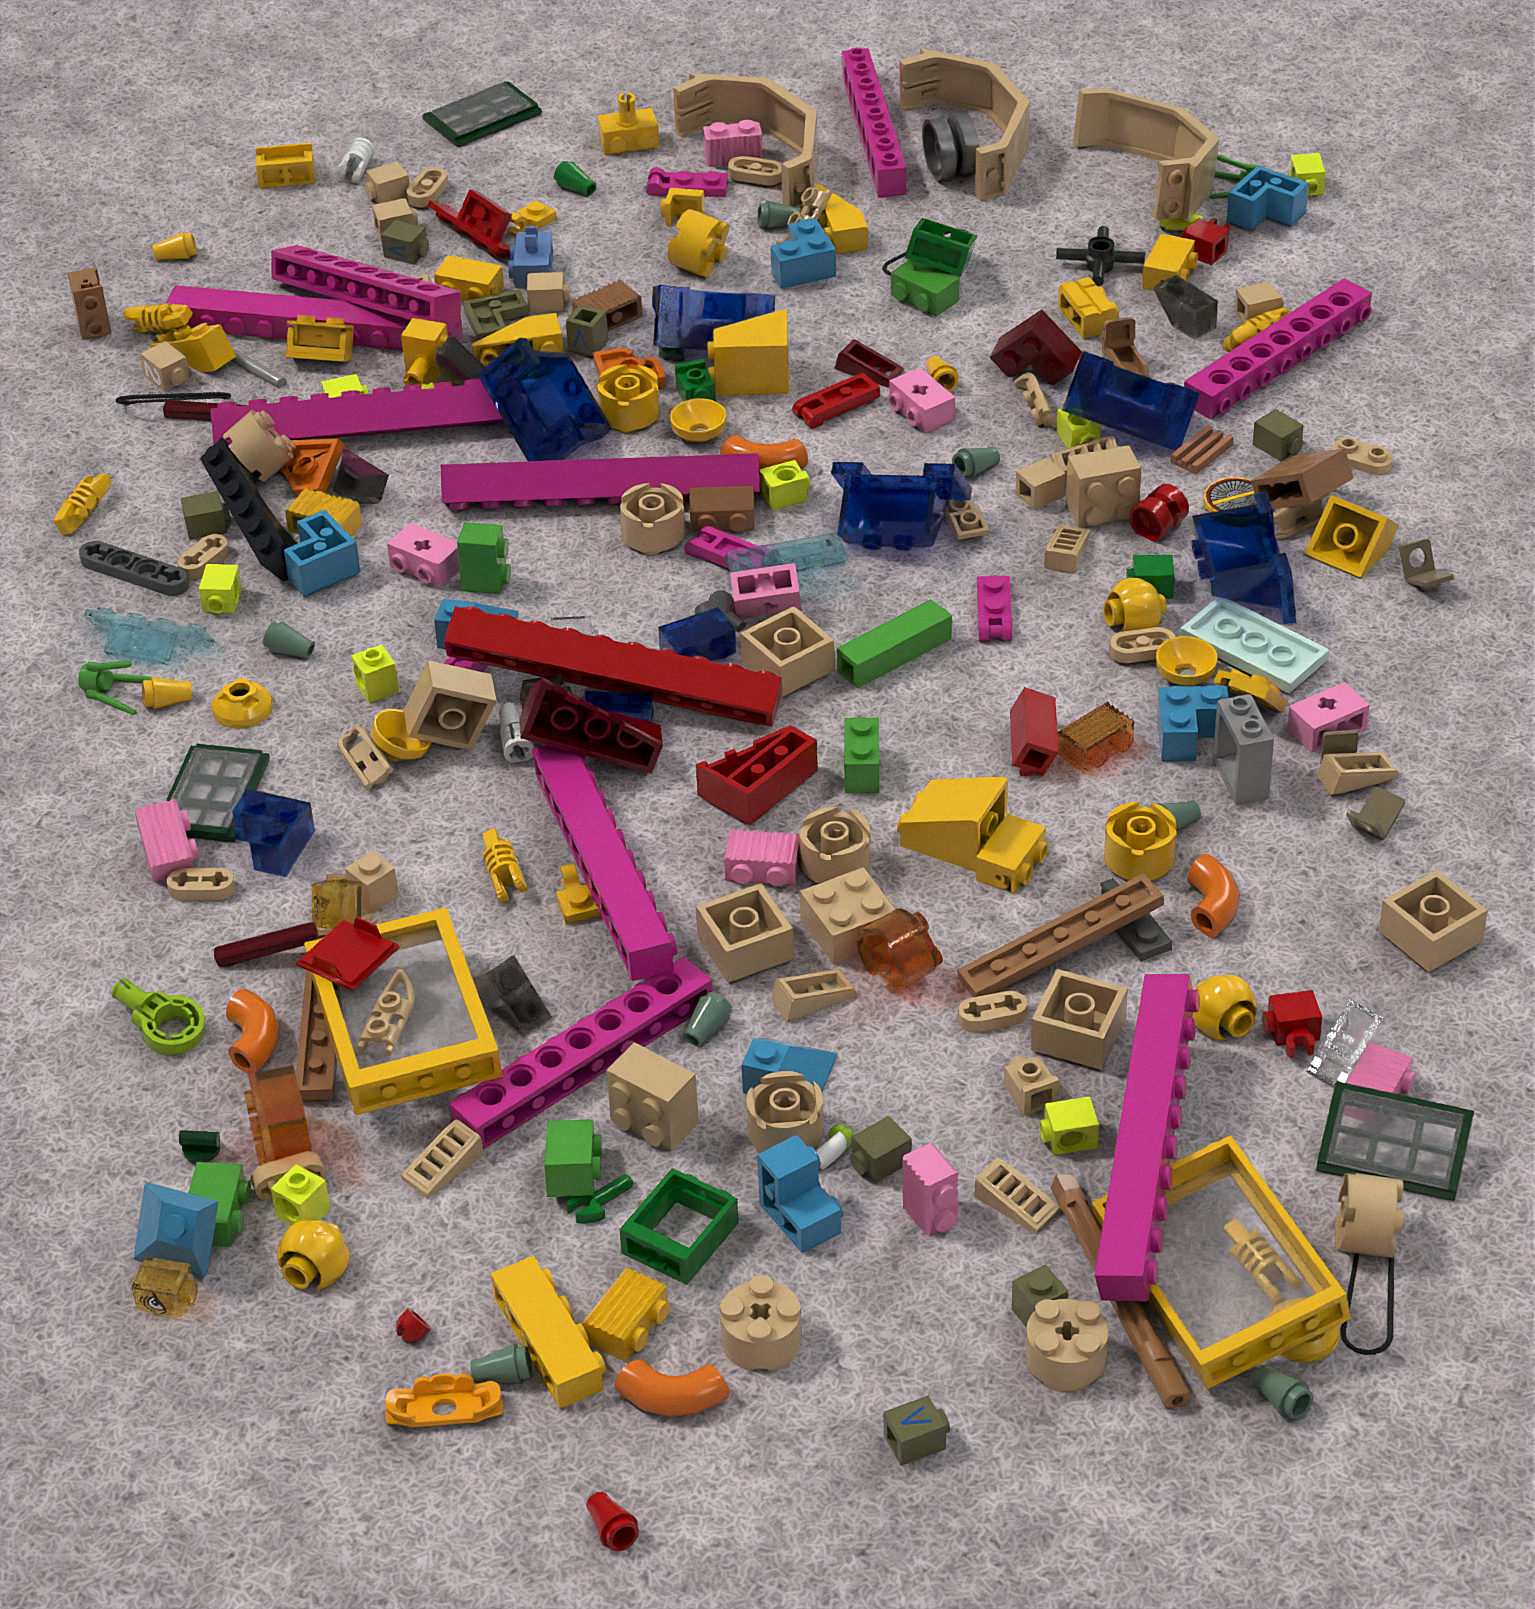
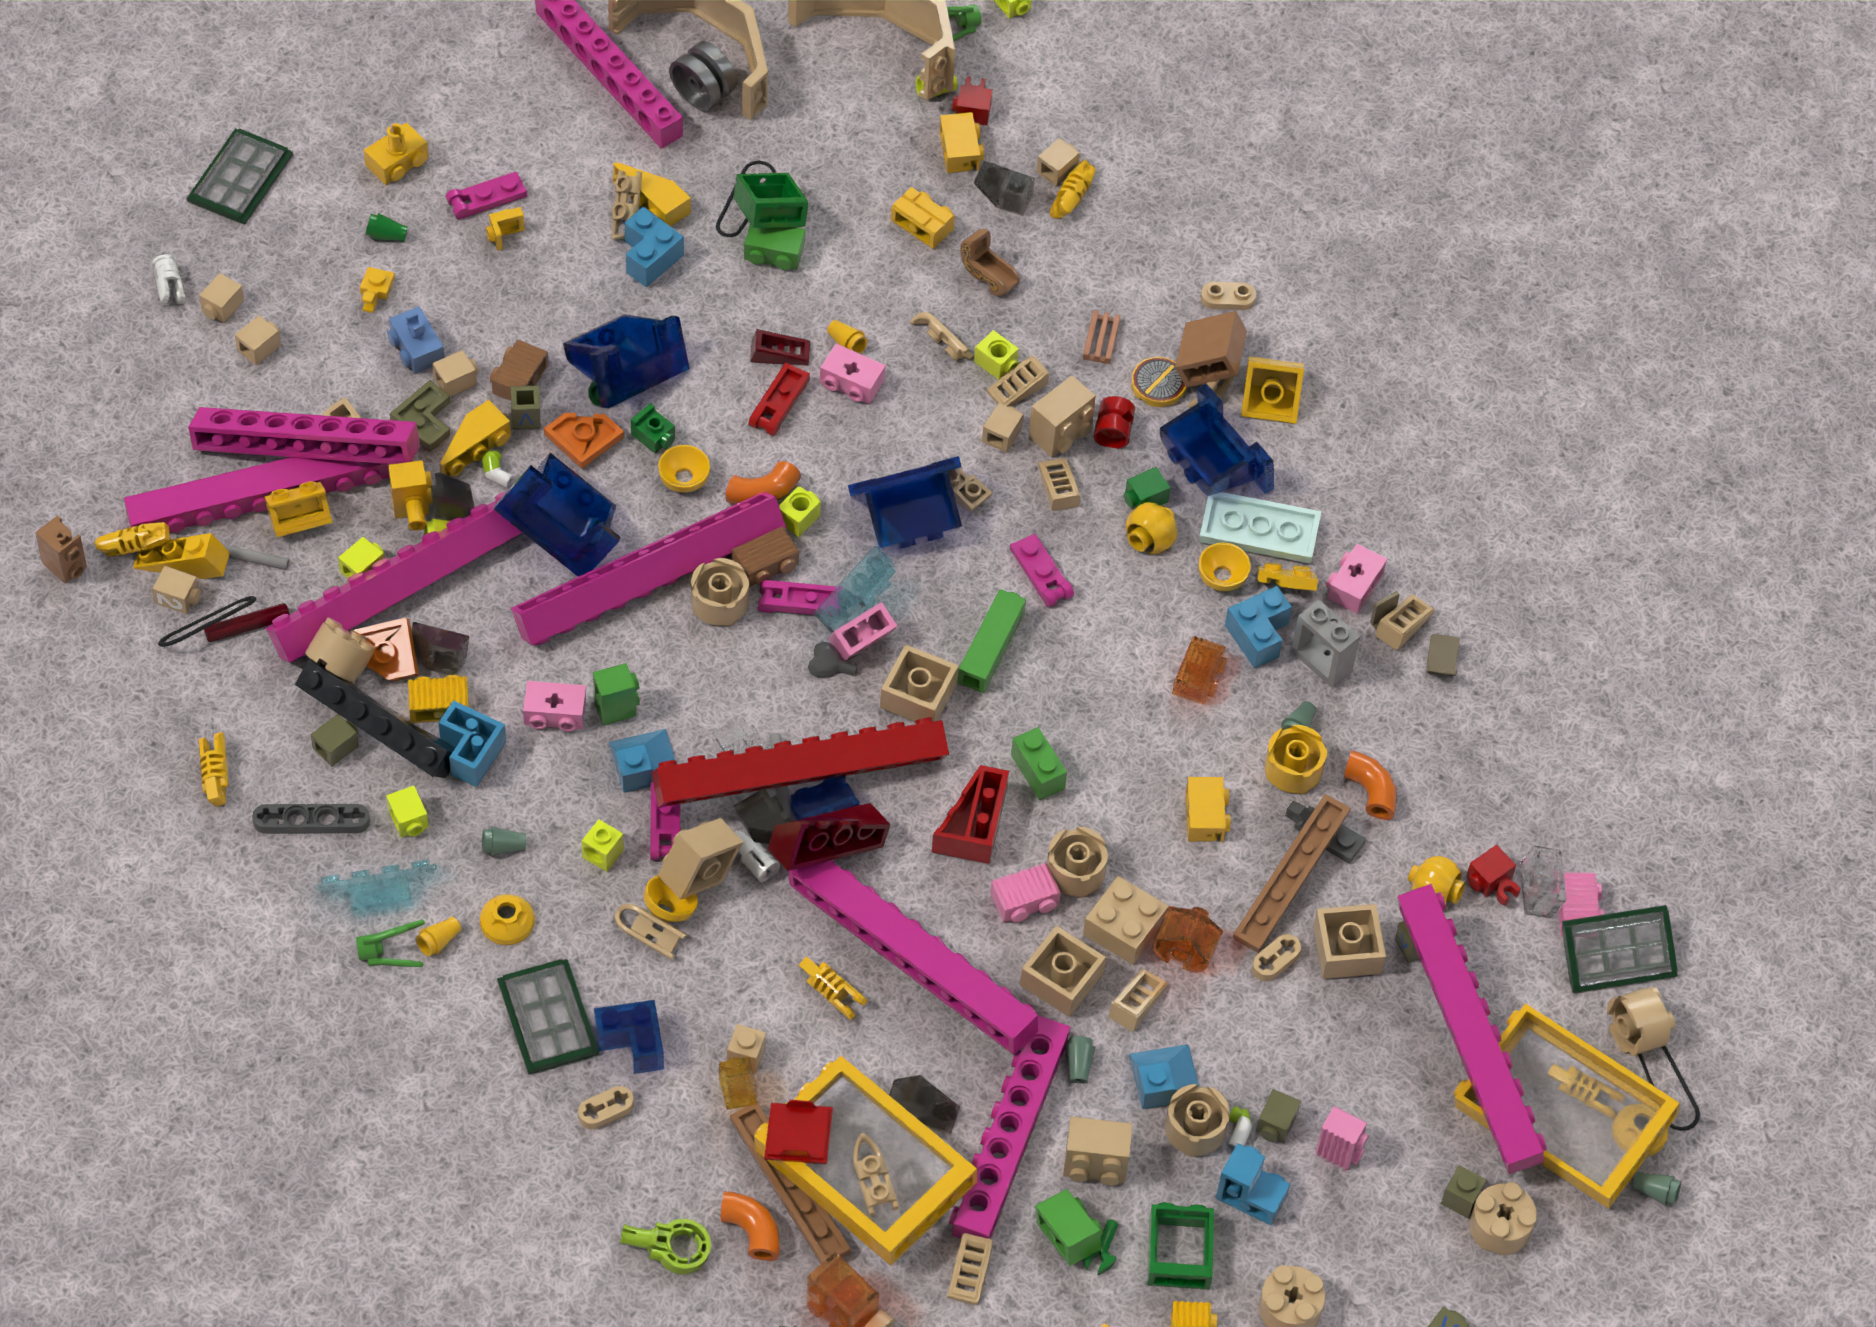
camera: 35 degrees left, 15 degrees up
(165, 839) = (556, 1082): bright pink brick -> none
(176, 247) = (77, 446): yellow cone -> none
(209, 550) = (368, 783): tan beam -> none
(265, 944) = (705, 1142): dark red axle -> none
(285, 165) = (108, 310): yellow hinge -> none
(405, 242) = (287, 362): olive brick -> none
(427, 186) = (257, 288): tan plate -> none
(470, 276) = (377, 386): yellow hinge -> none
(479, 218) = (337, 311): red bracket -> none
(575, 900) = (906, 992): yellow plate -> none
(629, 397) = (613, 467): yellow brick -> none
(698, 243) = (557, 270): yellow brick -> none
(702, 634) = (836, 701): clear blue hinge -> none
(733, 140) = (502, 136): bright pink brick -> none
(738, 98) = (530, 90): tan panel -> none
(751, 356) = (693, 383): yellow slope -> none
(755, 170) = (539, 158): tan plate -> none
(774, 214) = (592, 206): sand green cone -> none
(954, 818) = (1148, 796): yellow slope -> none
(975, 460) = (932, 424): sand green cone -> none
(998, 1179) = (1379, 1119): tan slope -> none
(1027, 1077) = (1347, 1018): tan brick -> none
(1033, 732) = (1154, 686): red brick -> none
(1039, 344) = (915, 282): dark red brick -> none
(1070, 1126) = (1394, 1035): neon yellow brick -> none
(1100, 255) = (897, 152): pearl dark grey bar -> none
(1130, 402) = (1031, 316): clear blue windscreen -> none
(1131, 1313) = (1478, 1134): medium nougat piece -> none
(1138, 644) = (1176, 563): tan plate -> none
(1265, 195) = (999, 34): dark azure brick -> none
(1278, 435) = (1157, 301): olive brick -> none
(1279, 347) = (1101, 206): dark pink brick -> none
(1425, 574) = (1344, 403): dark tan bracket -> none
(1433, 920) = (1540, 743): tan brick -> none

